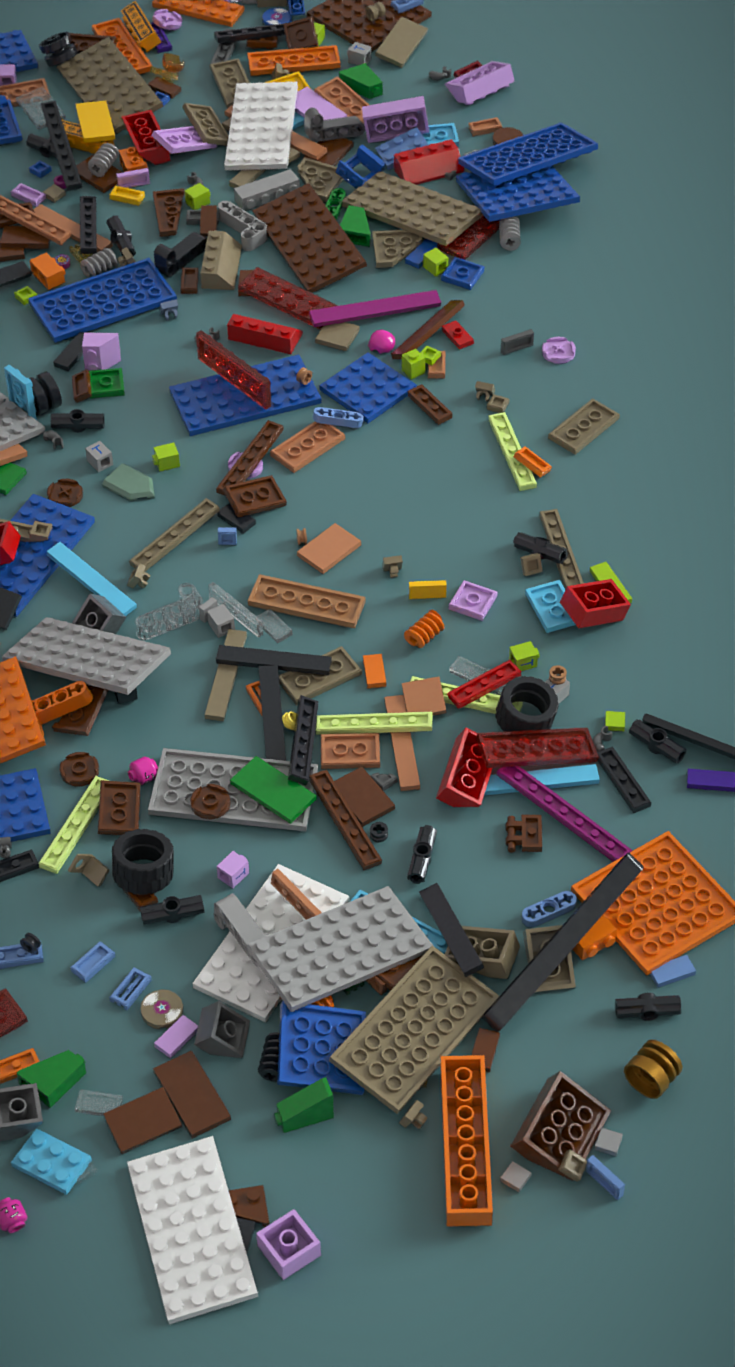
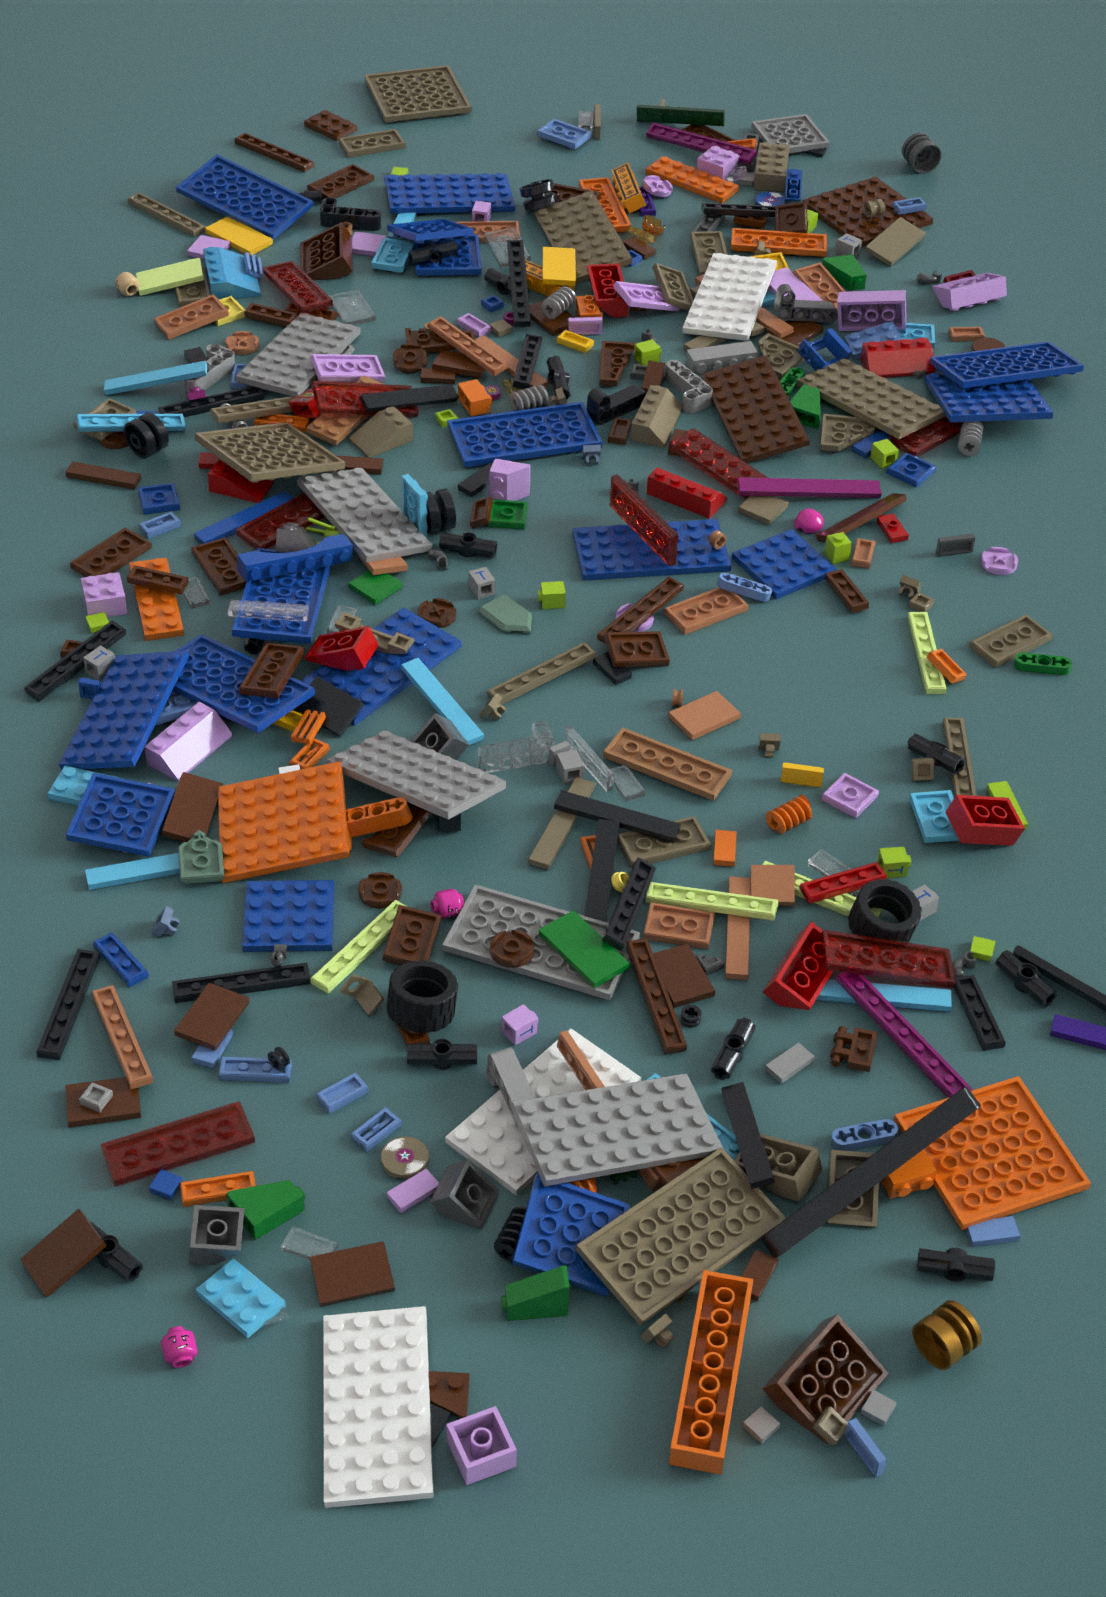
camera: 10 degrees right, 5 degrees down
(192, 1094) = (415, 1257): reddish brown tile -> none
(227, 536) = (597, 683): medium blue tile -> none
(431, 355) = (858, 542): lime tile -> none
(472, 857) = (789, 1063): none -> light grey tile
(557, 670) = (926, 881): medium nougat bush -> none
(610, 448) = (1055, 664): none -> green beam

